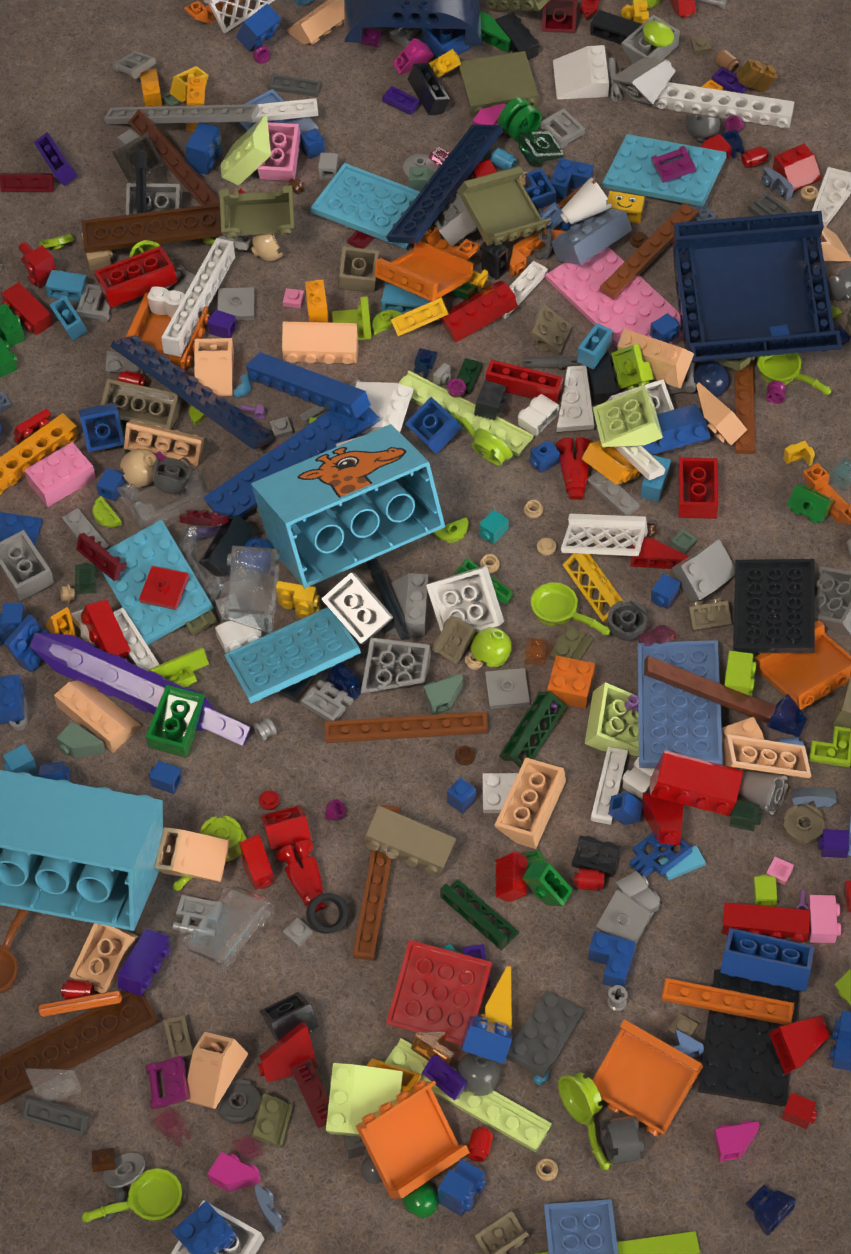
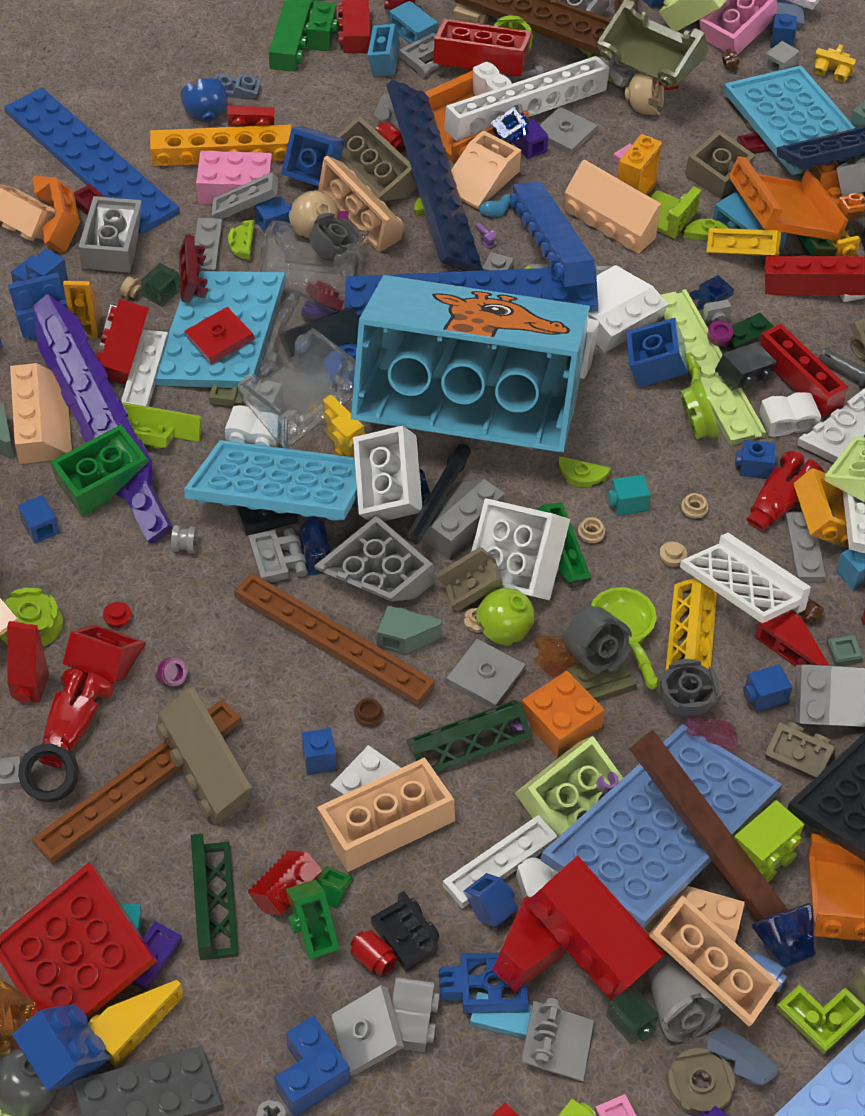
camera: 35 degrees right, 5 degrees down
(83, 483) = (245, 196): none -> light grey plate
(210, 318) = (510, 126): none -> clear blue brick
(363, 145) = (836, 61): none -> yellow hips
(559, 626) = (597, 639): none -> dark grey brick
(719, 854) = (557, 1040): none -> light grey hinge

